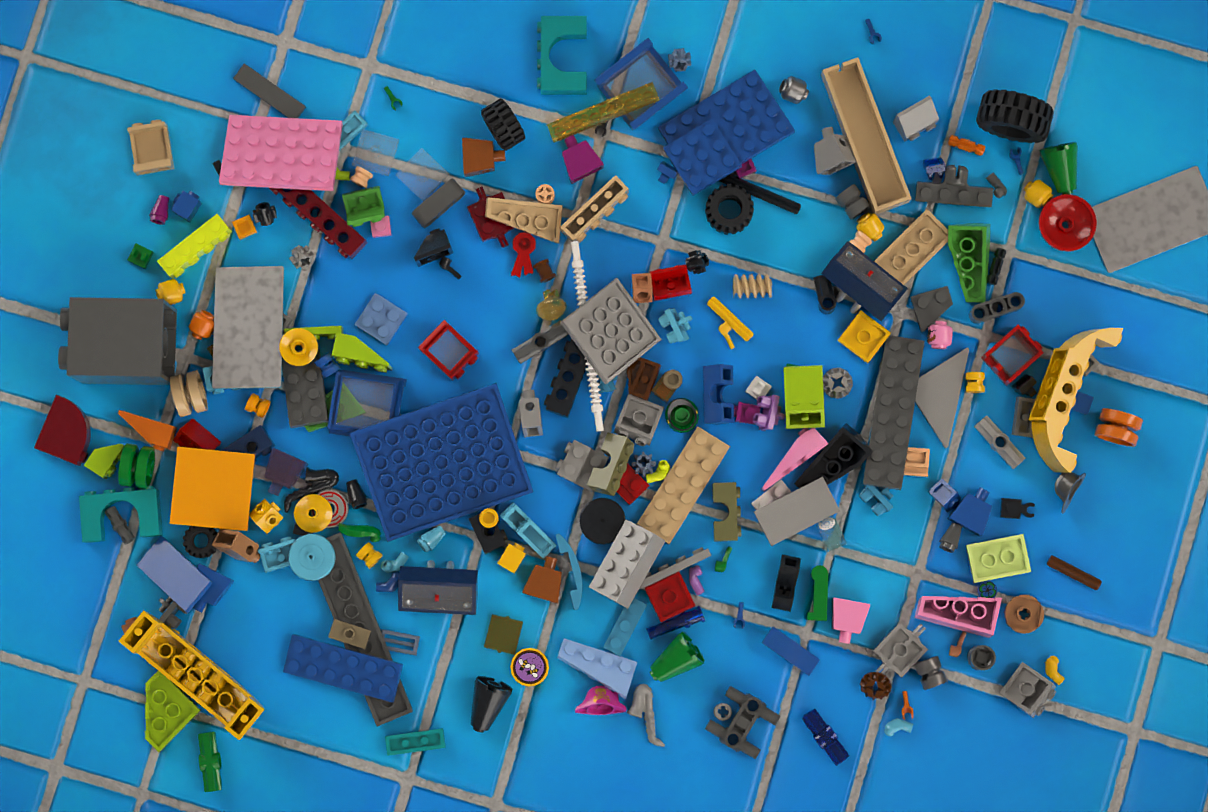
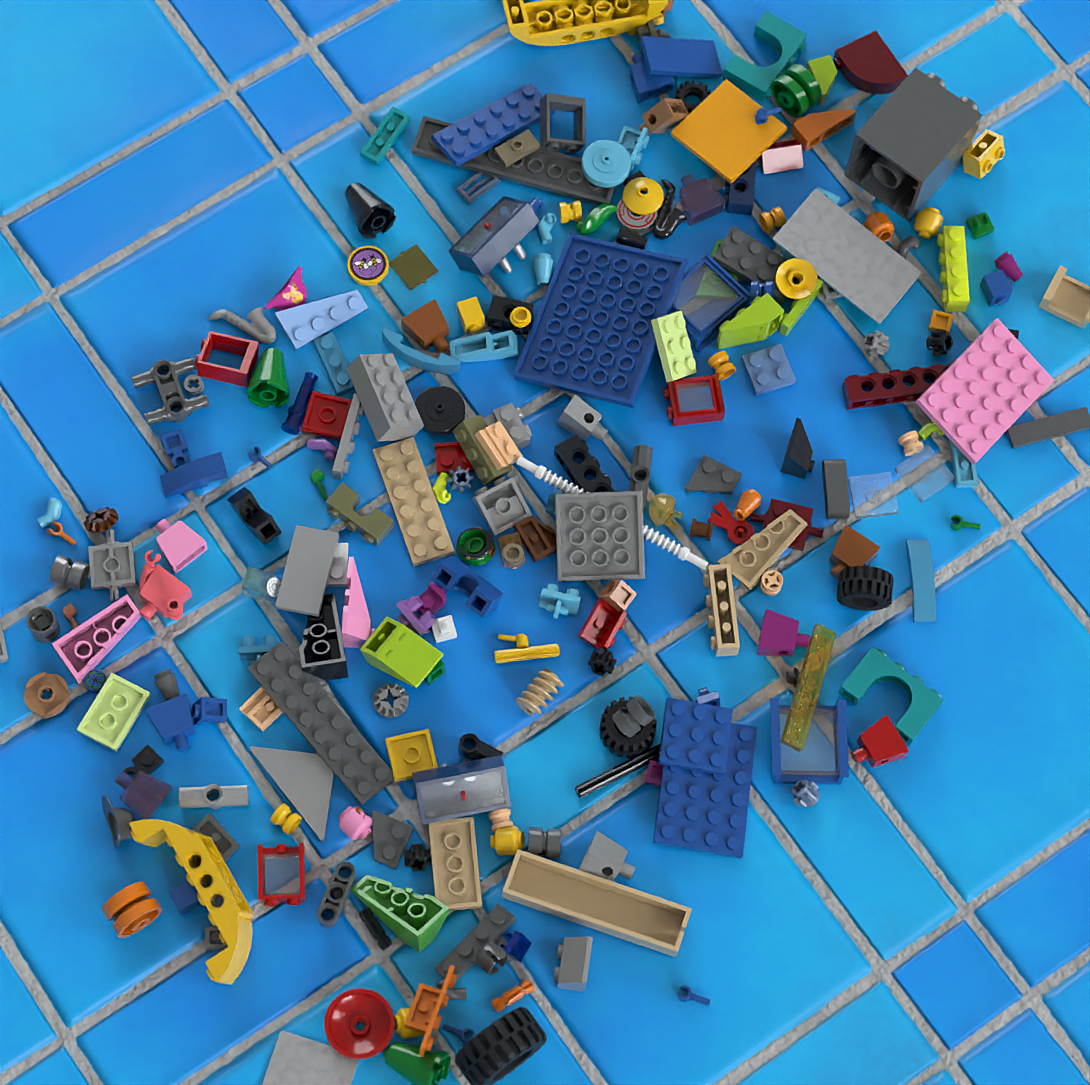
camera: 120 degrees right, 15 degrees down
(72, 288) = (983, 154): none -> yellow brick
(119, 525) = (757, 51): dark grey pin -> none
(184, 470) = (761, 116): none -> blue hand
(188, 393) = (826, 169): tan wheel -> none
(201, 296) = (907, 244): none -> dark grey arm
(266, 515) = (671, 158): yellow brick -> none
(294, 603) = (567, 104): none -> dark grey window
(364, 206) = (879, 424): bright green bracket -> none
(381, 228) = (852, 429): bright pink plate -> none
(405, 356) = (721, 364): none -> light orange wheel
(424, 391) = (674, 346): none -> yellowish green plate
(445, 264) = (775, 454): black hand -> none
(458, 97) = (922, 580): none -> dark azure slope
(497, 294) = (713, 477): none -> dark grey wing
(500, 253) = (747, 504): none -> orange cone
(600, 453) = (498, 445): none -> light nougat plate
(604, 37) = (880, 744): none -> red torso
(672, 709) = (229, 344): none -> red window
(726, 203) = (636, 714): none -> dark grey wheel
(779, 684) = (175, 446): none -> blue plate
(793, 90) = (694, 875): flat silver head -> none
(820, 594) = (218, 536): green leg -> none
(825, 737) = (97, 447): clear blue piece -> none
(892, 598) = (161, 591): none -> coral torso
(930, 275) = (417, 857): none -> black gear
(1025, 386) = (244, 861): black tile -> none
(1026, 184) = (426, 1008): none -> orange bracket
(1037, 488) = (142, 793): none -> clear purple torso
(1074, 572) = (42, 768): reddish brown axle -> none

